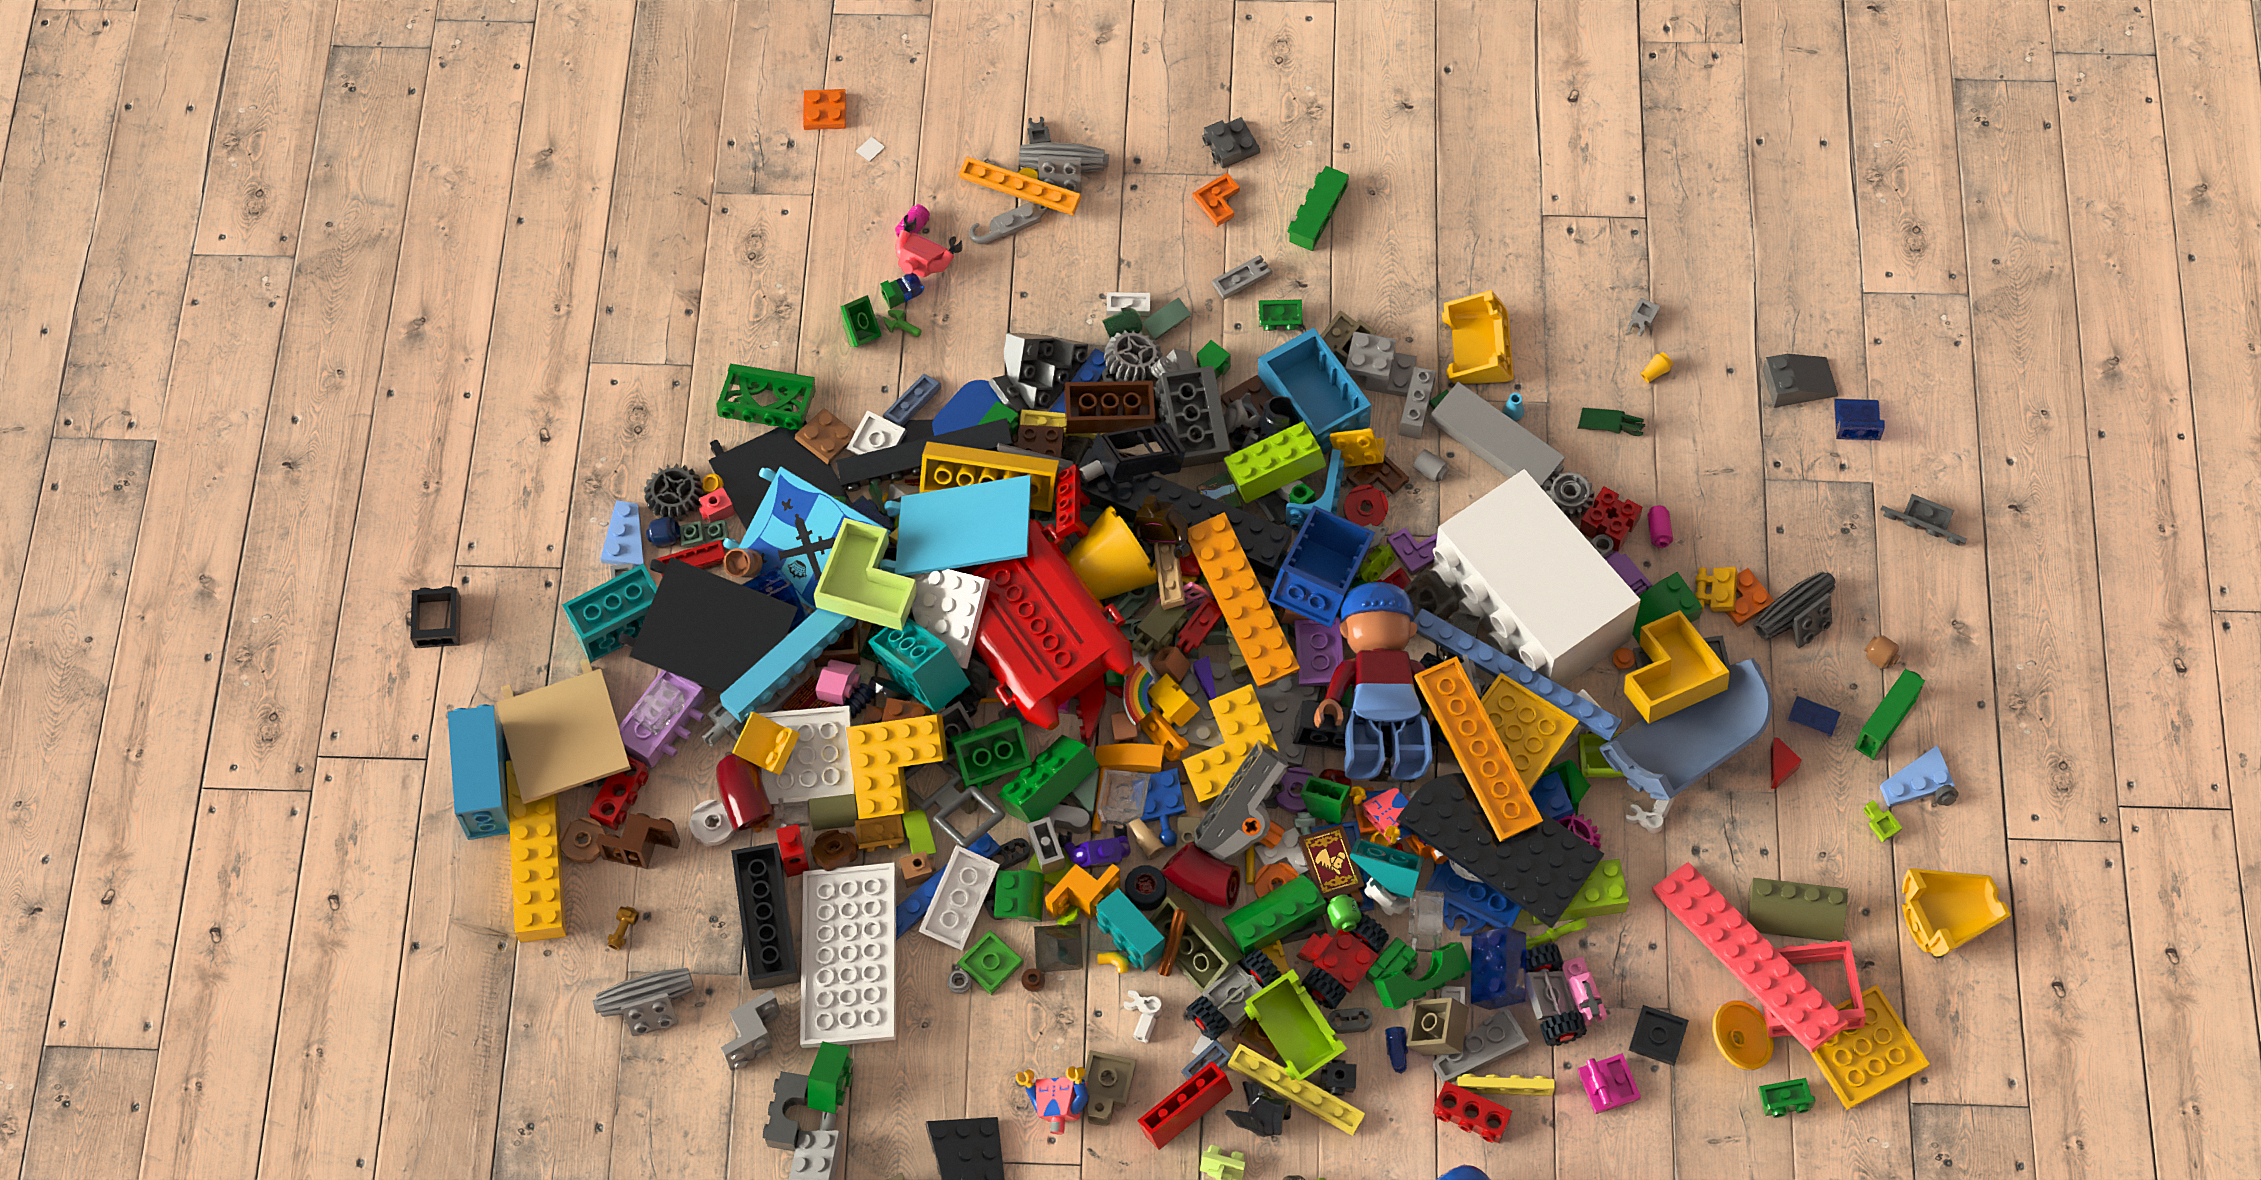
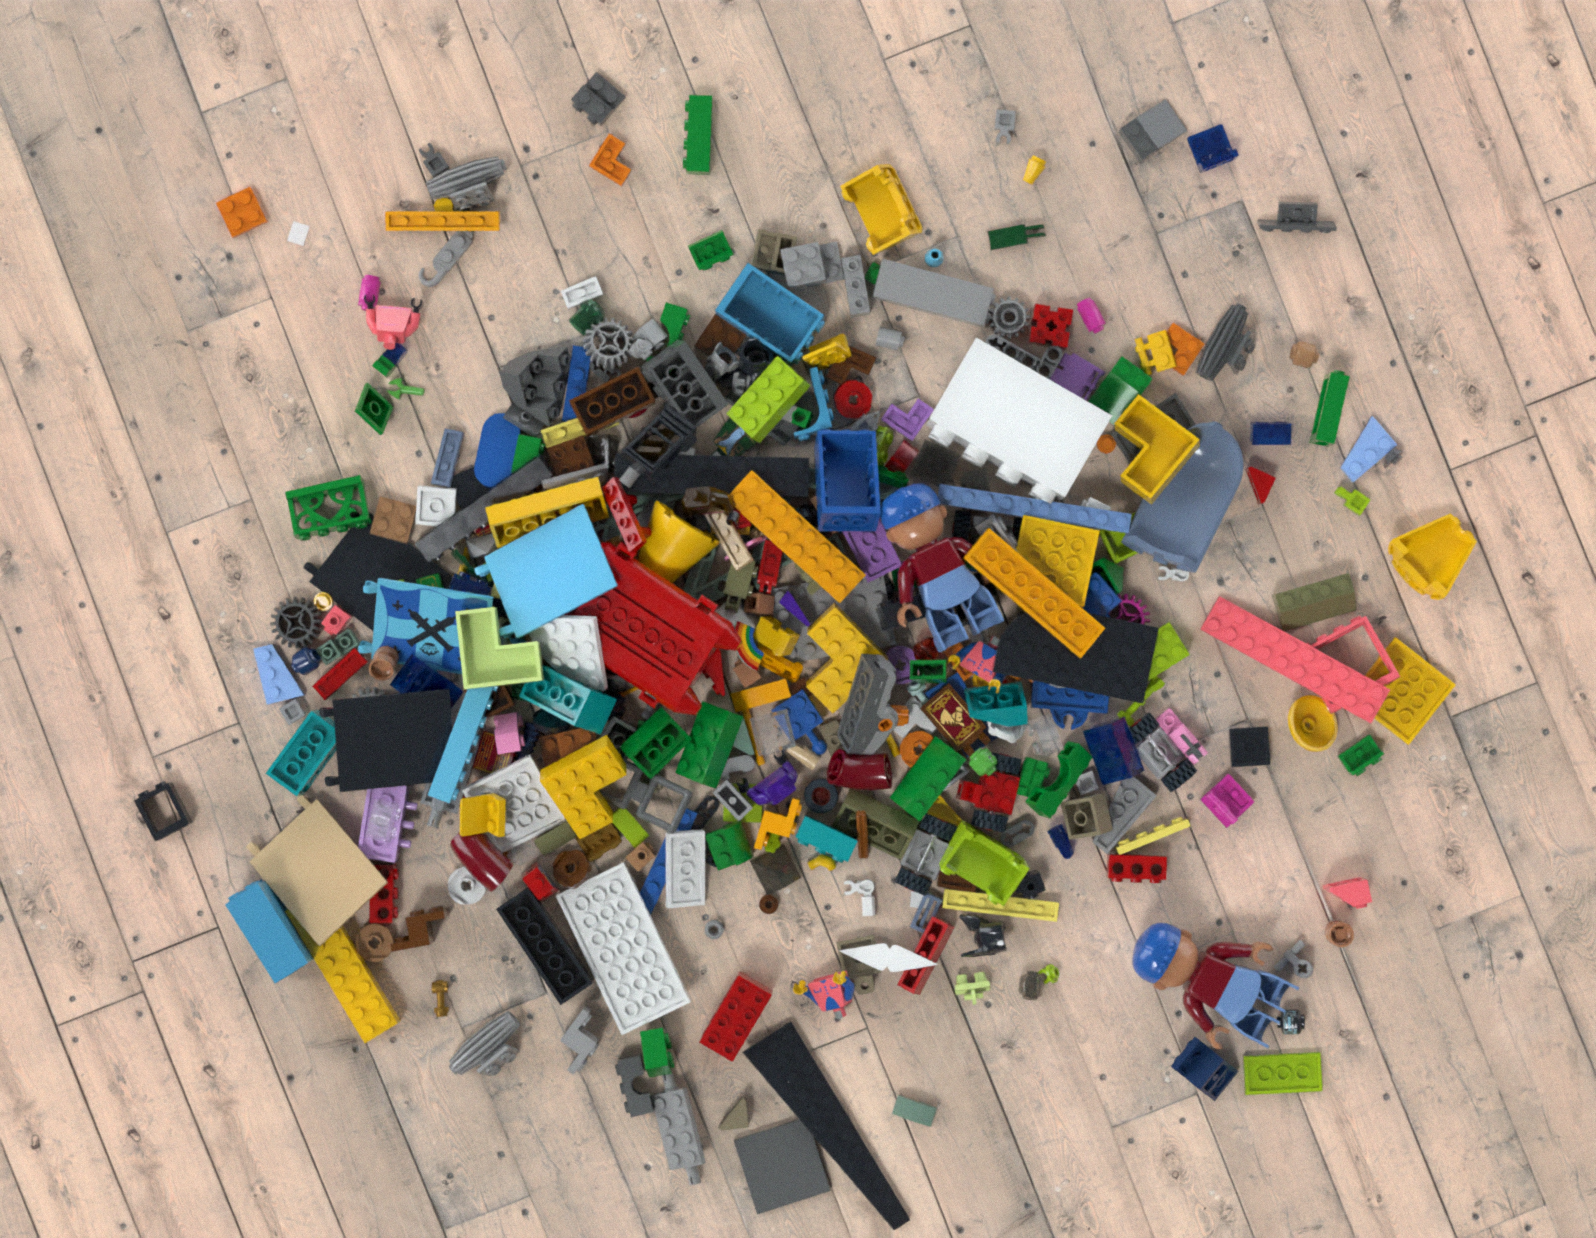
camera: 20 degrees left, 25 degrees up
(938, 1076) = (736, 1016): none -> red brick
(990, 962) = (730, 903): bright green tile -> none
(1148, 1090) = (895, 958): none -> white sticker
(1167, 318) = (619, 293): sand green slope -> none
(1241, 277) = (663, 228): light grey hinge -> none

